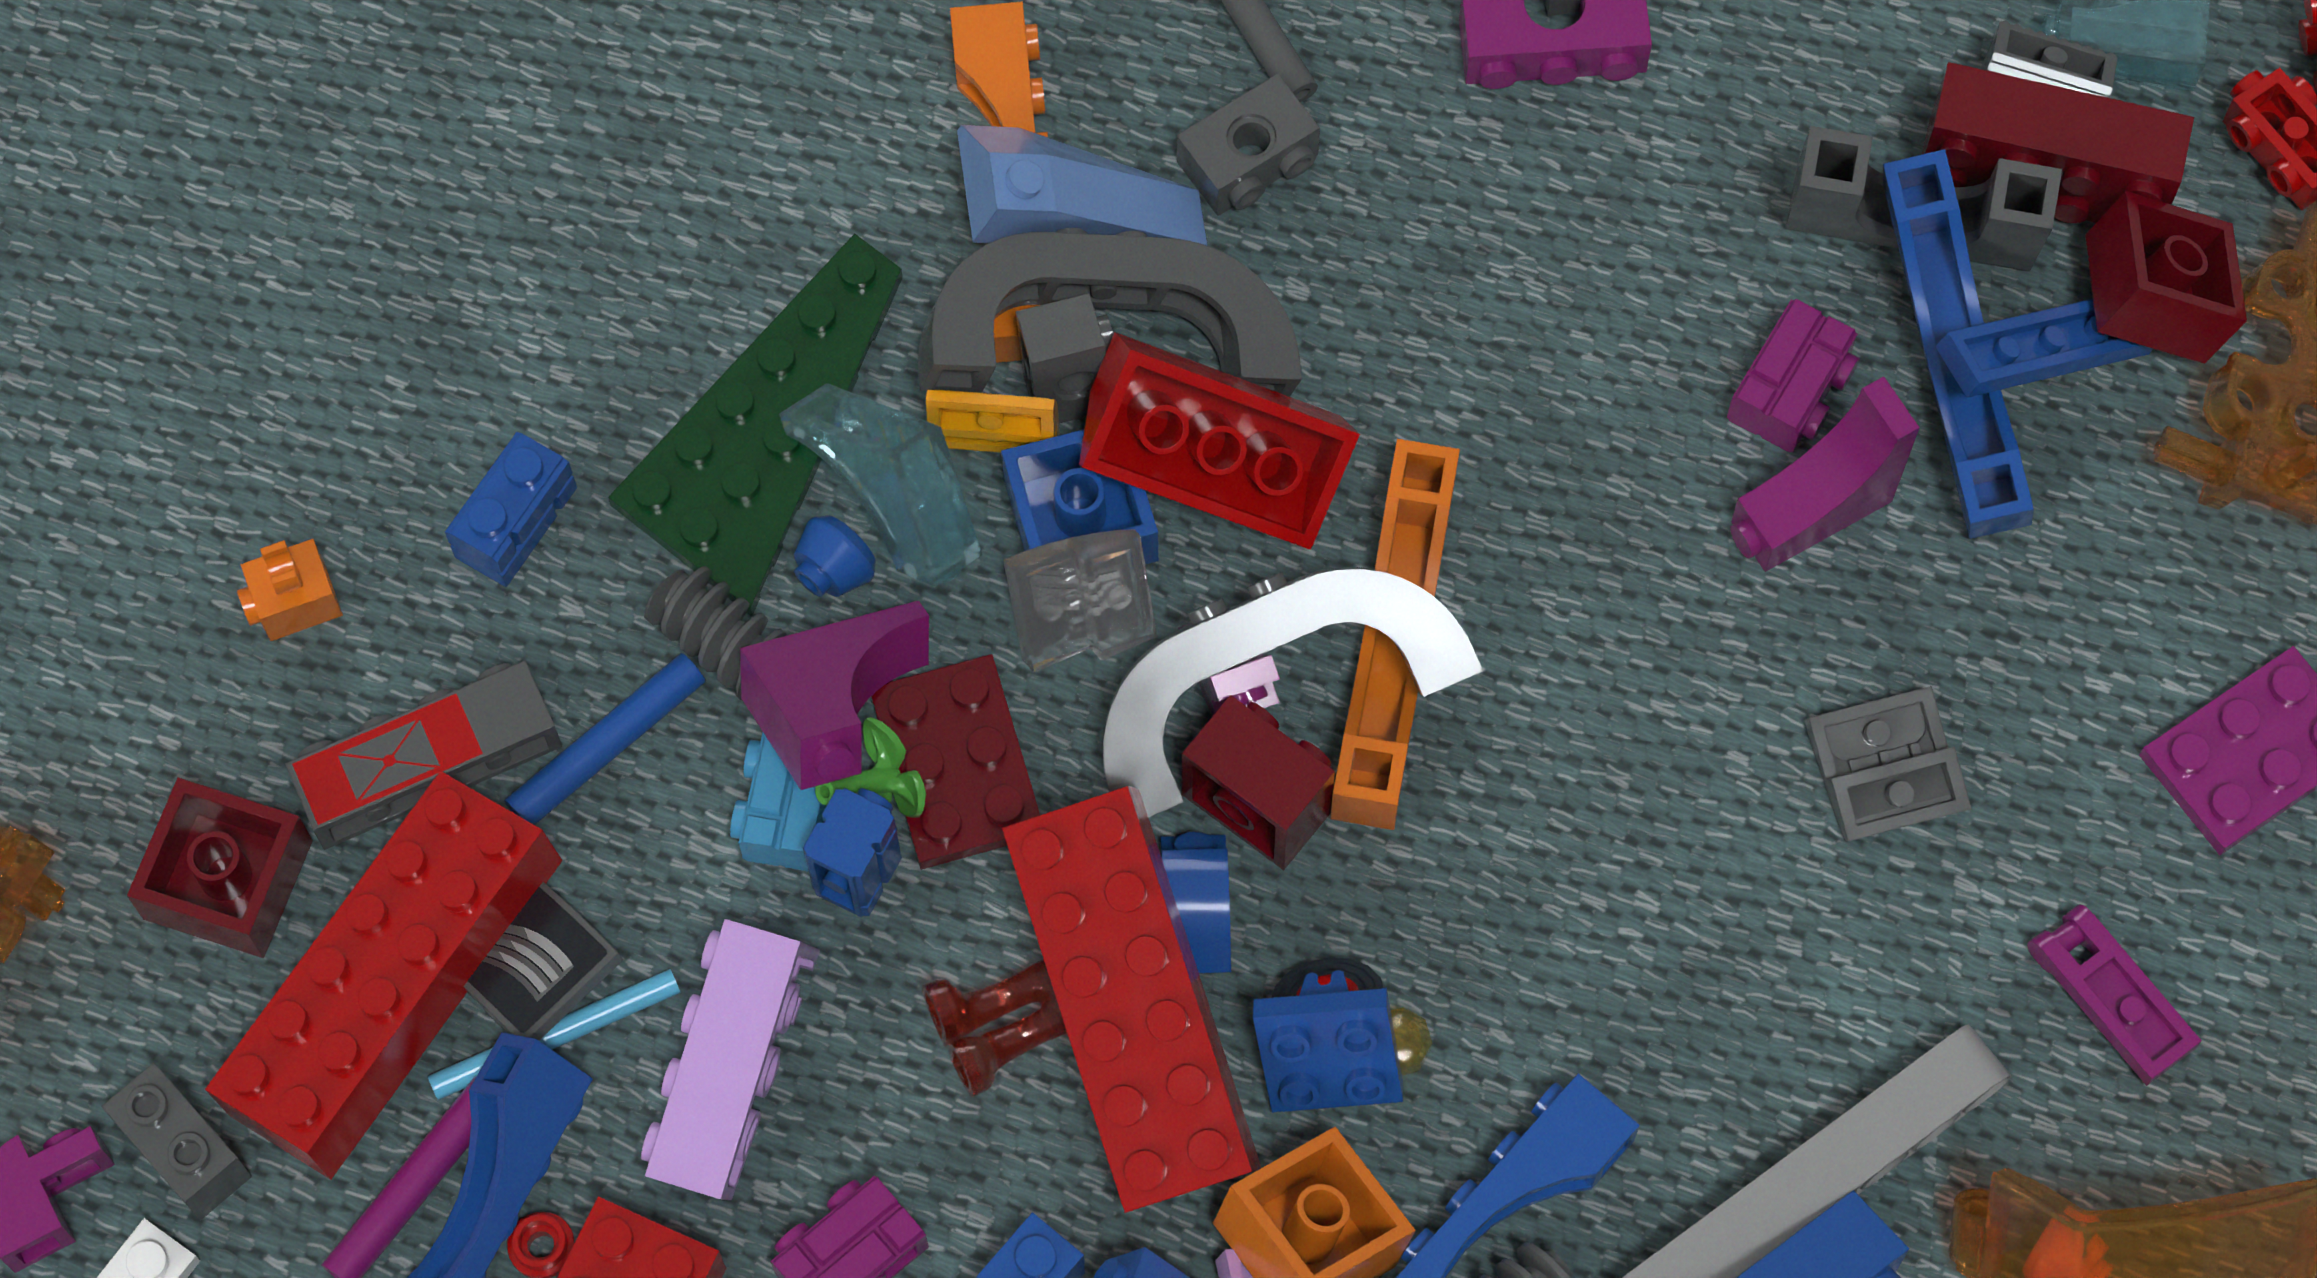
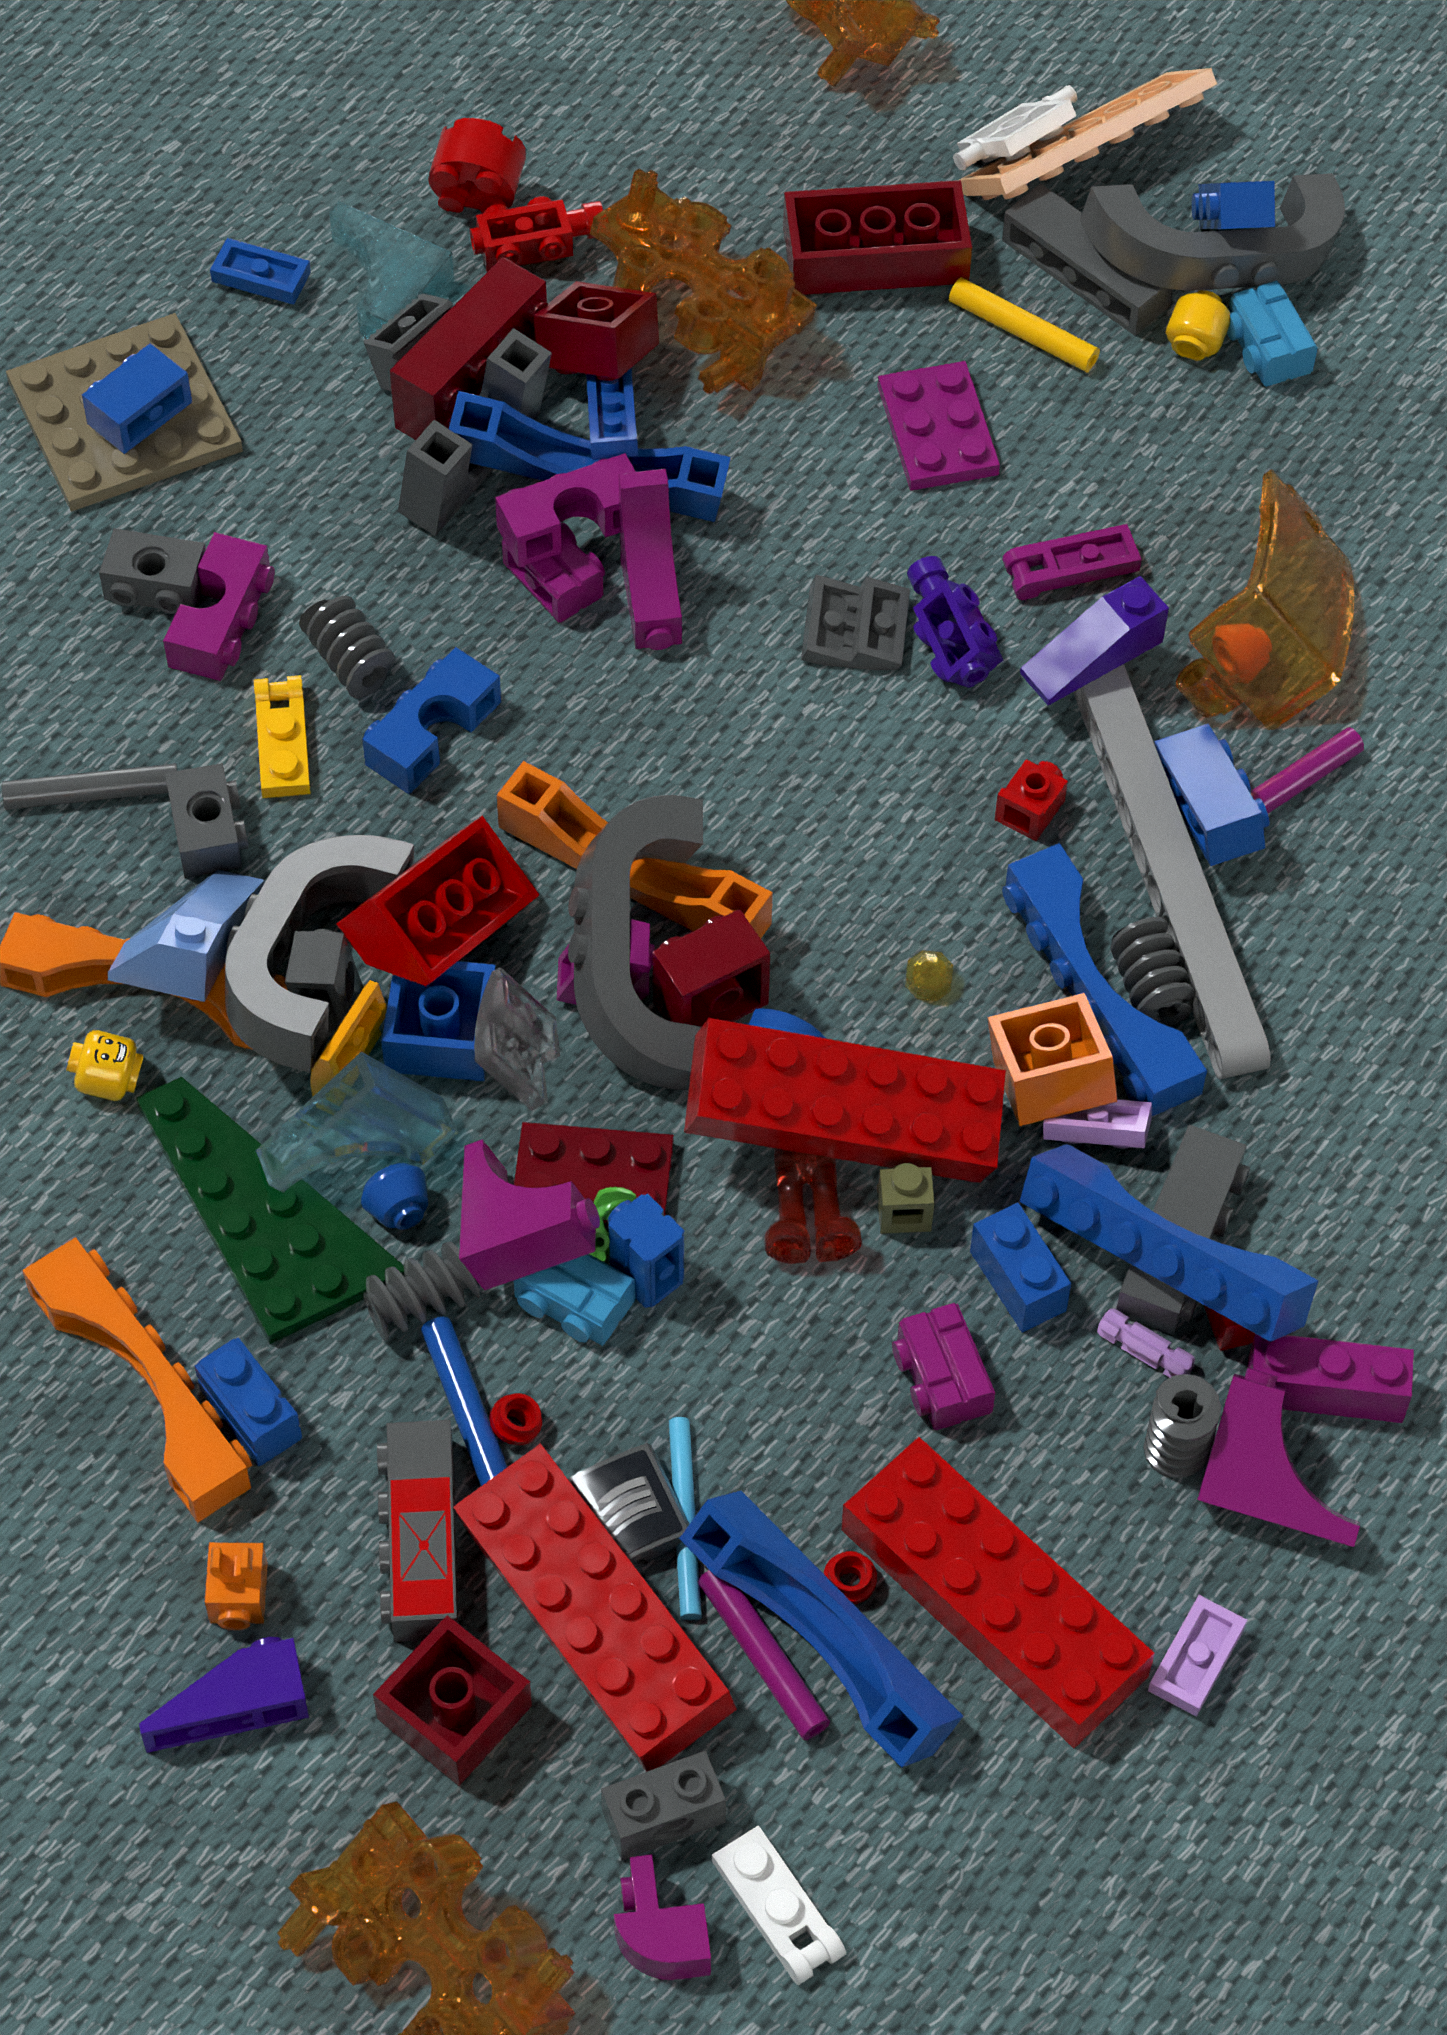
camera: 70 degrees left, 10 degrees down
(165, 648) = (241, 1694): none -> dark purple slope
(428, 483) = (81, 1301): none -> orange arch
(610, 780) = (522, 1408): none -> red plate
(726, 1058) = (765, 1389): lavender wedge -> none
(878, 183) = (105, 1065): none -> yellow head
(1058, 1124) = (901, 1189): none -> olive brick
(1328, 1038) = (914, 1000): blue plate -> none
(1411, 181) = (282, 738): none -> yellow plate
(1456, 308) = (452, 691): none -> blue arch
(1562, 194) = (348, 644): none -> dark grey piece
(1696, 1087) = (1031, 798): none -> red brick
(1824, 315) = (533, 514): none -> magenta arch
(1923, 894) = (952, 625): none -> dark purple brick
(1960, 1061) = (1099, 641): none -> dark purple slope

